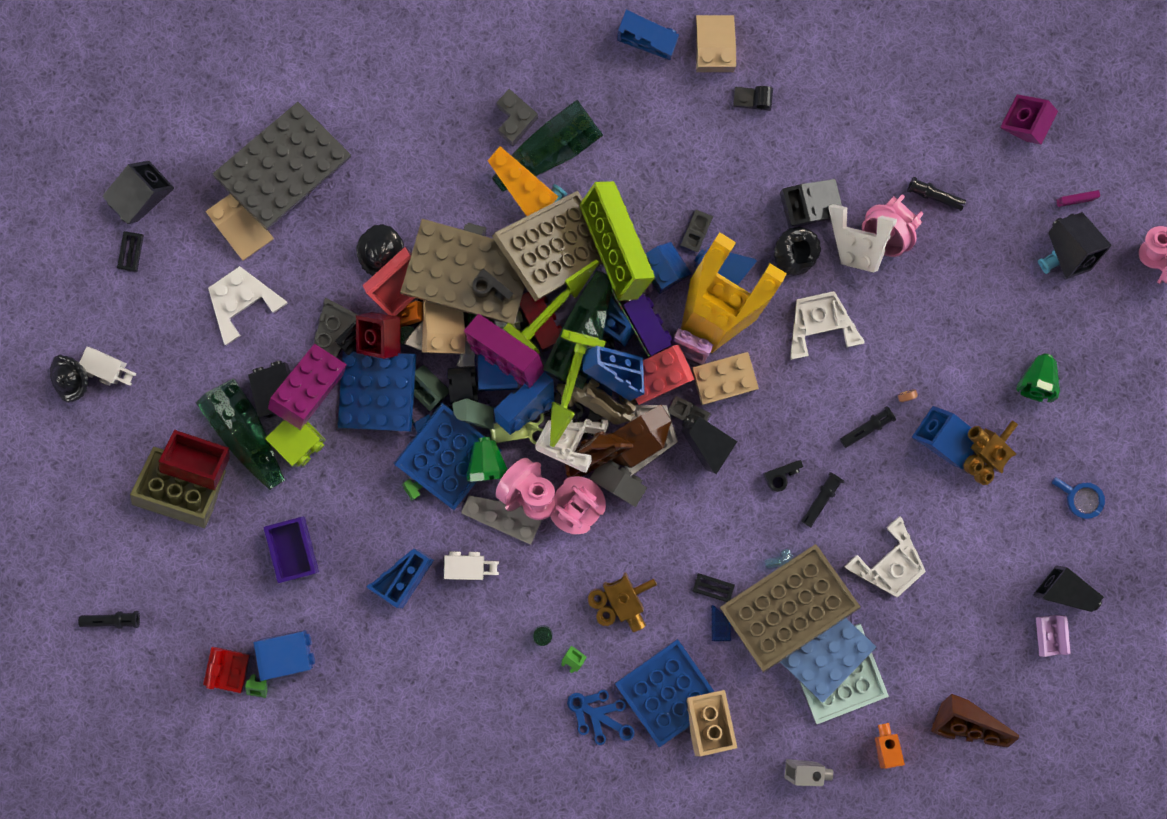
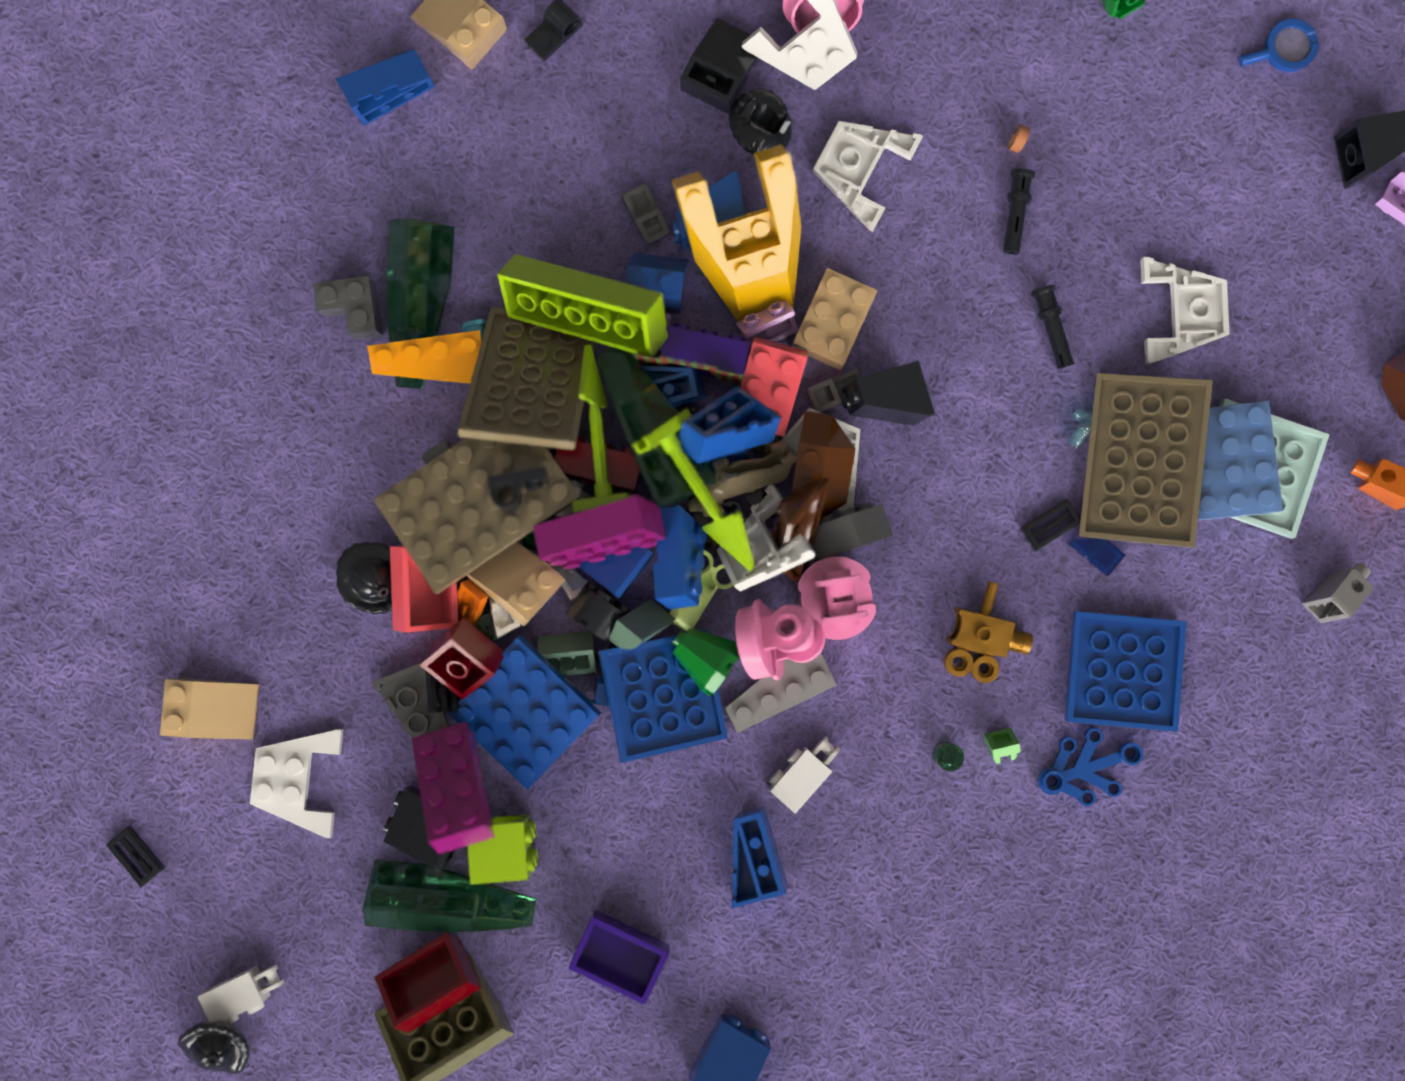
camera: 50 degrees left, 0 degrees up
(137, 191) = (73, 792): black slope -> none
(281, 165) = (183, 607): dark grey plate -> none
(412, 489) = (665, 765): bright green tile -> none
(710, 723) = (1202, 654): tan slope -> none
(791, 469) = (987, 344): black plate -> none
(945, 436) = (1100, 132): blue slope -> none
(989, 450) = (1159, 99): pearl gold piece -> none

